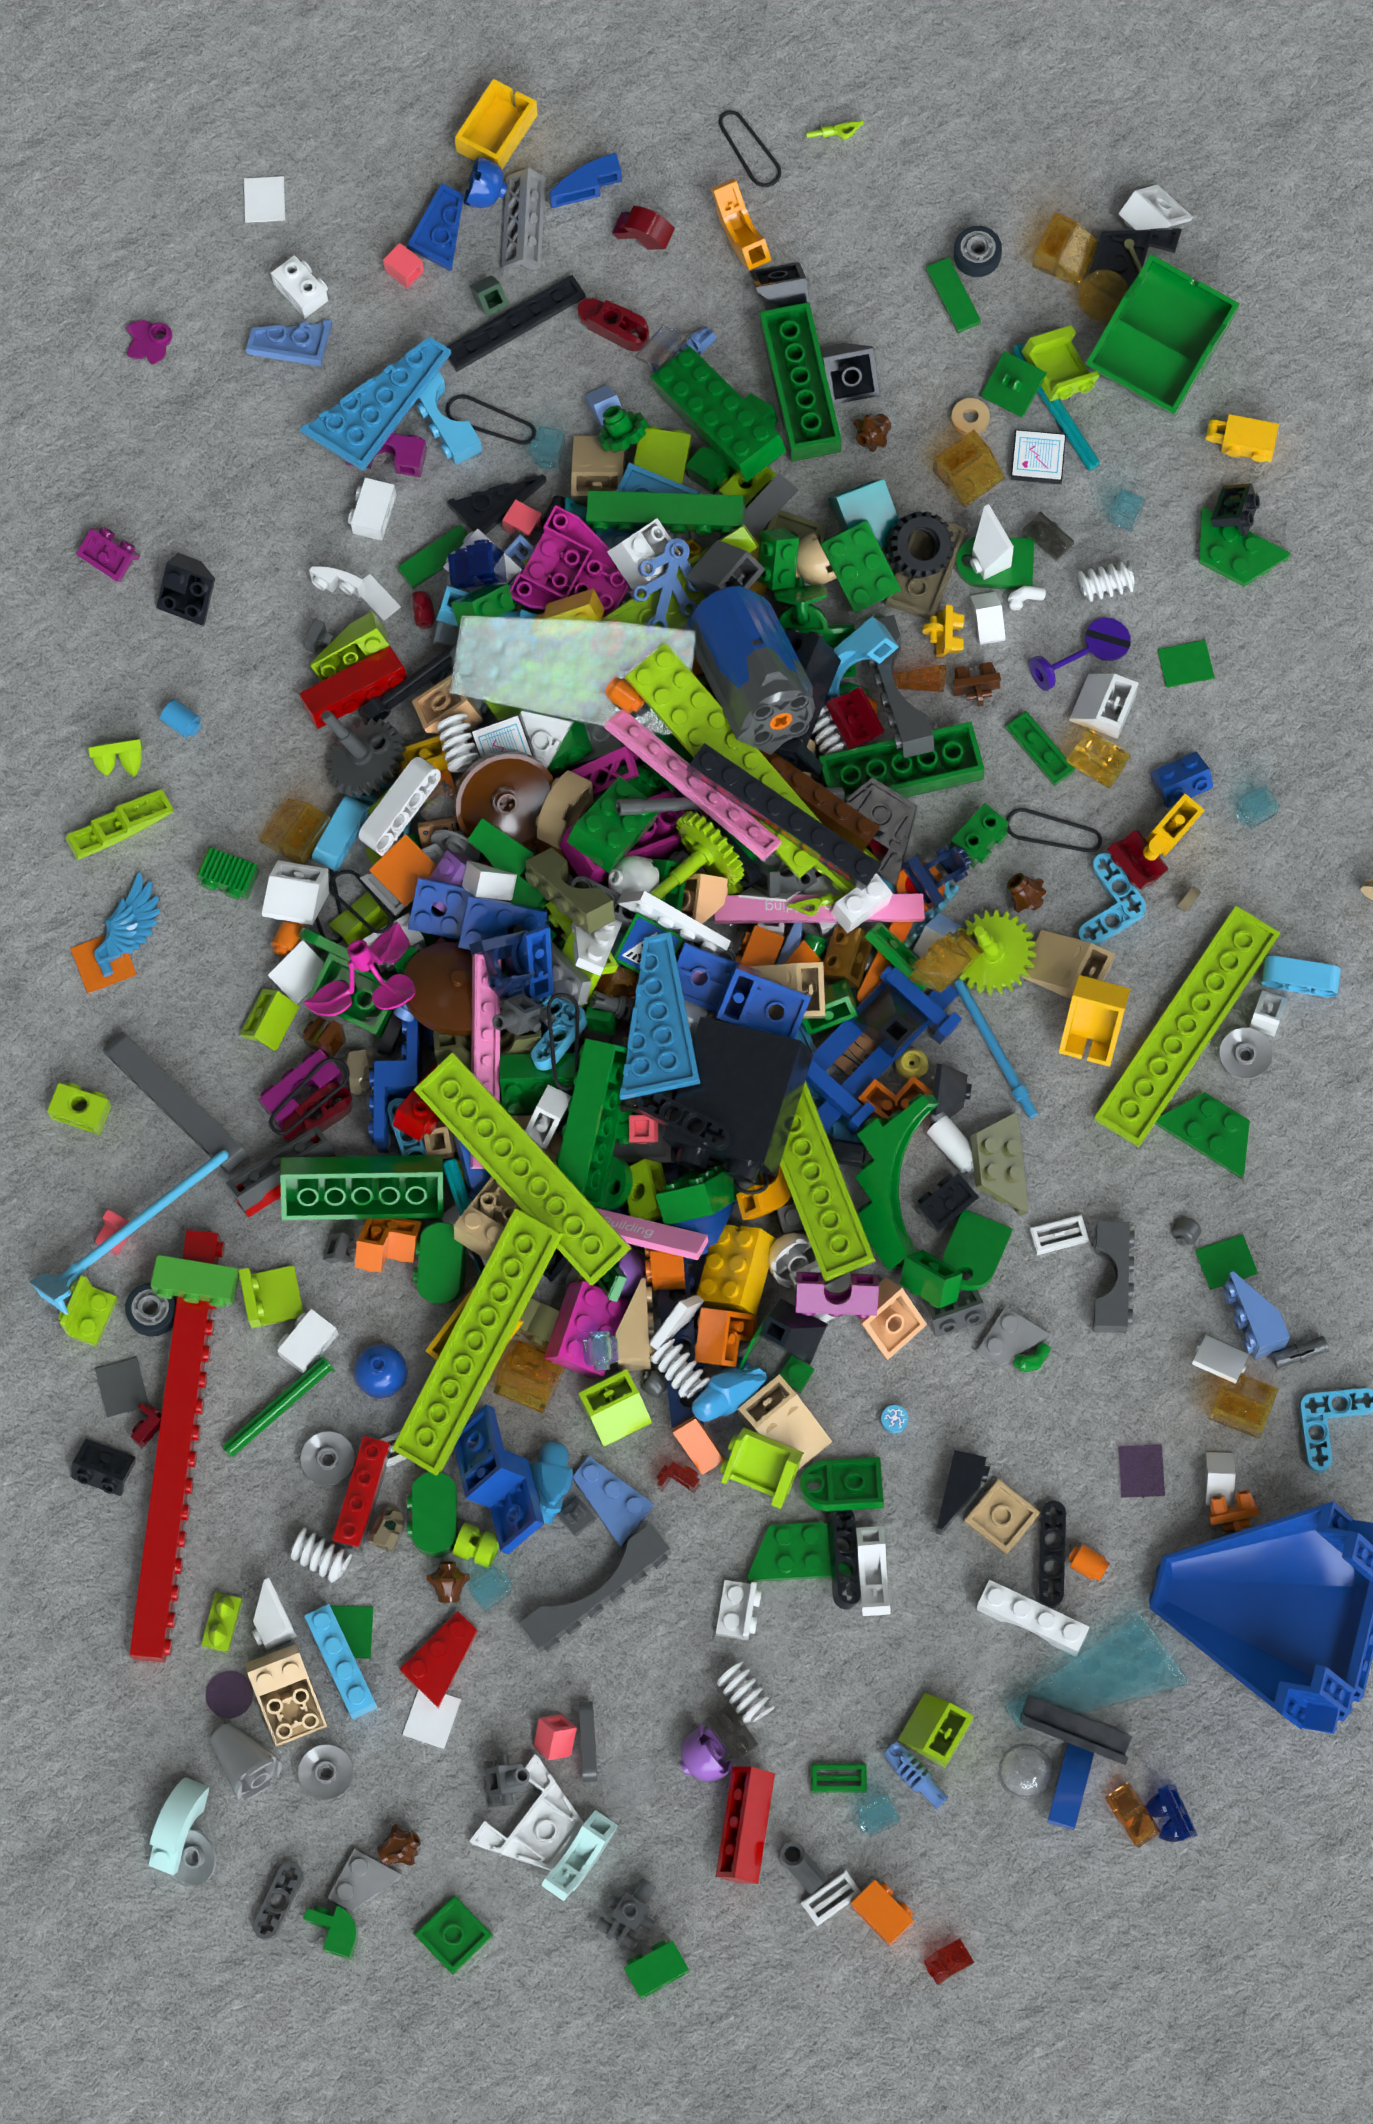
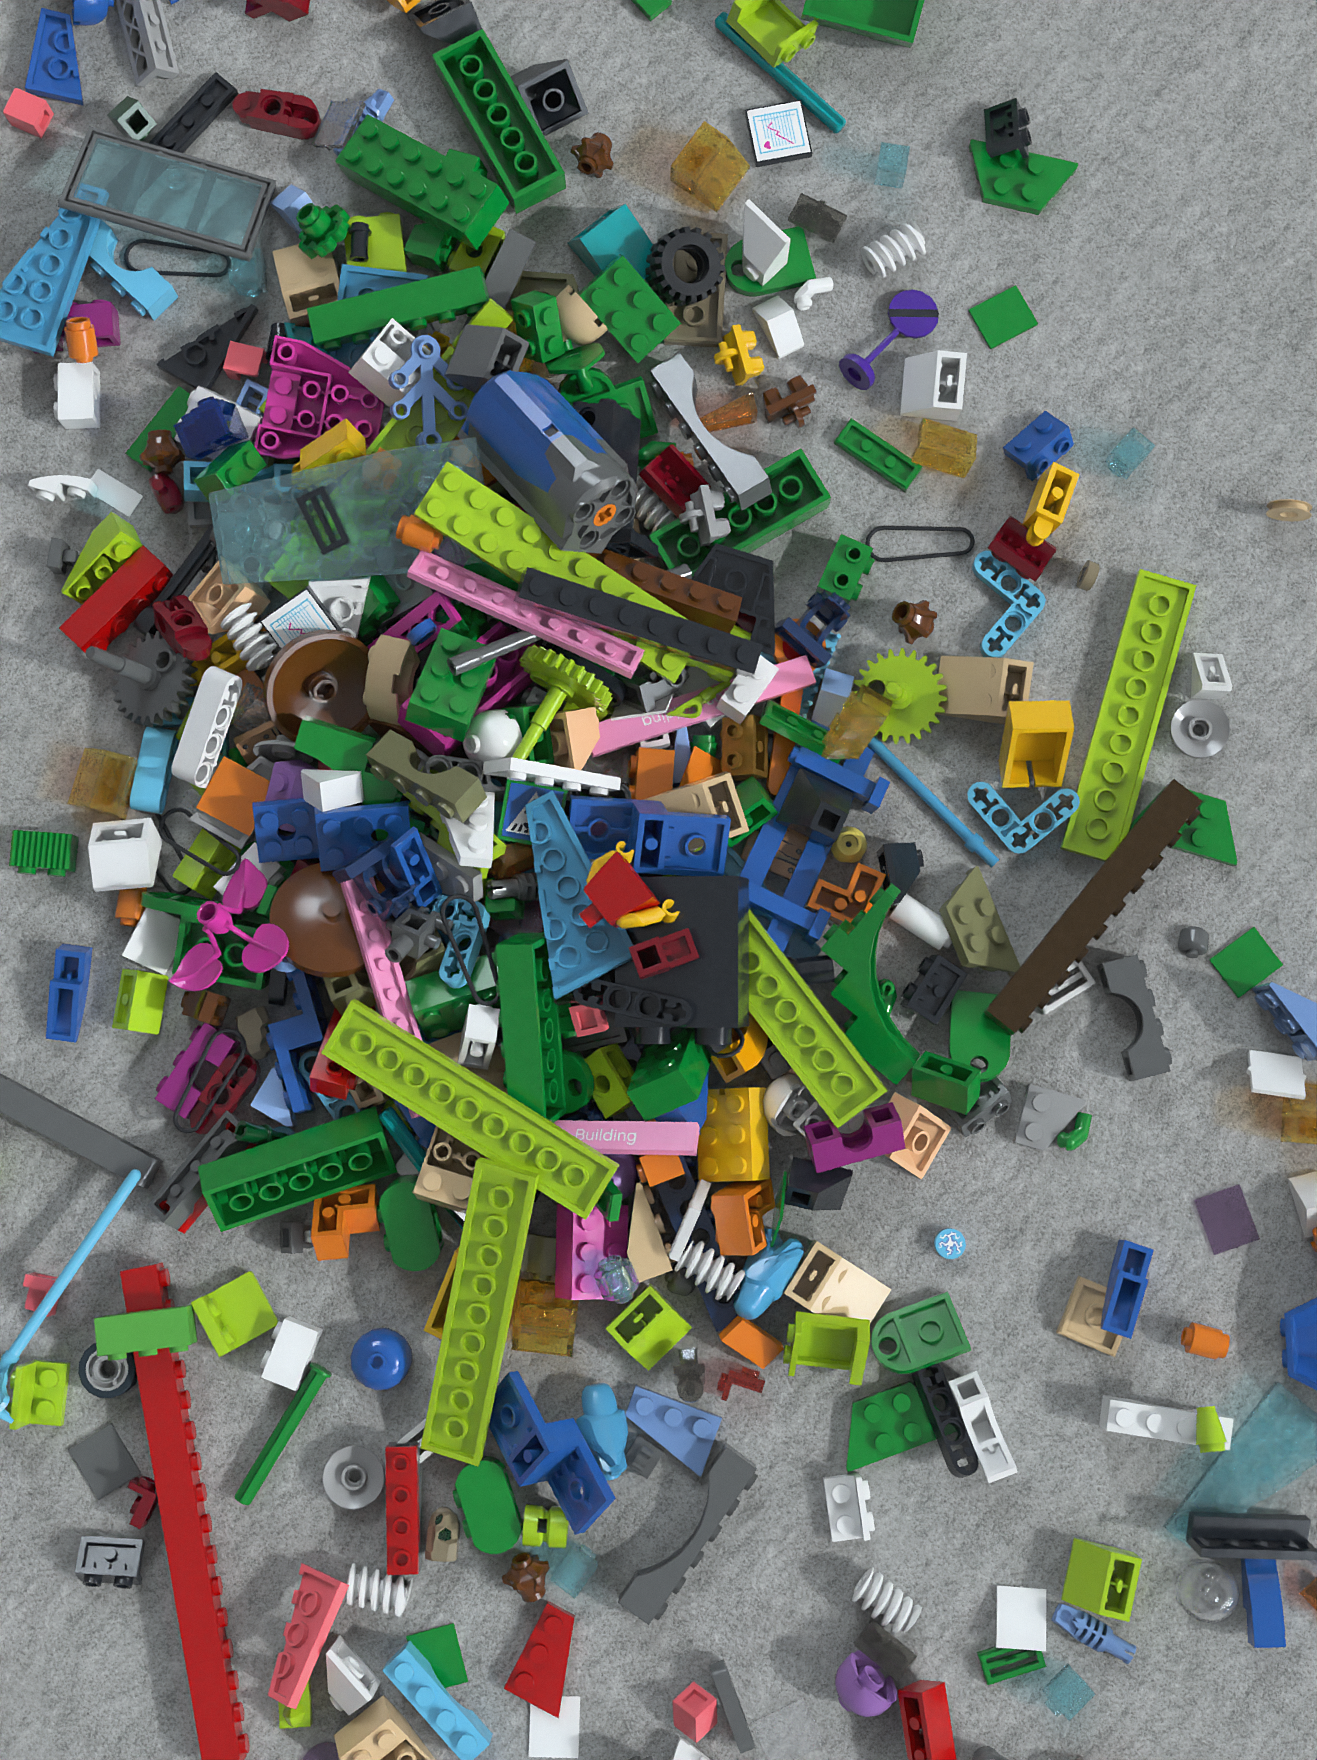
camera: 20 degrees left, 10 degrees up
(212, 994) = (68, 992): none -> blue slope
(258, 1558) = (311, 1621): none -> coral wing
(334, 1147) = (256, 1134): none -> dark green axle
(356, 1130) = (271, 1100): none -> light blue slope
(391, 464) = (81, 339): none -> orange brick
(403, 720) = (182, 627): none -> dark red piece
(429, 574) = (161, 452): none -> reddish brown rock
(501, 365) = (168, 194): none -> clear light blue door
(559, 658) = (335, 544): none -> black tile
(602, 776) = (422, 632): none -> blue tile
(637, 1454) = (689, 1376): none -> clear smoke hips
(650, 448) = (359, 241): none -> black pin
(701, 1027) = (621, 894): none -> red torso
(716, 1085) = (663, 953): none -> dark red brick
(797, 1374) = (829, 1226): green plate -> none
(857, 1745) = (1021, 1618): none -> white window
(867, 751) = (701, 515): none -> light grey hips
(868, 642) = (664, 392): medium azure arch -> none
(906, 1196) = (888, 993): none -> green arm
(962, 1484) = (1045, 1296): black slope -> none
(970, 405) = (685, 98): tan piece -> none
(1013, 384) = (729, 60): green piece -> none
(1033, 1495) = (1126, 1288): none -> blue slope
(1052, 1554) = (1165, 1340): black beam -> none
(1060, 1087) = (1015, 824): none -> medium azure beam
(1063, 1624) = (1209, 1430): none -> lime cone
(1102, 1171) = (1092, 907): none -> dark brown brick
(1244, 437) = (992, 49): yellow brick -> none
(1301, 976) = (1231, 626): medium azure beam -> none

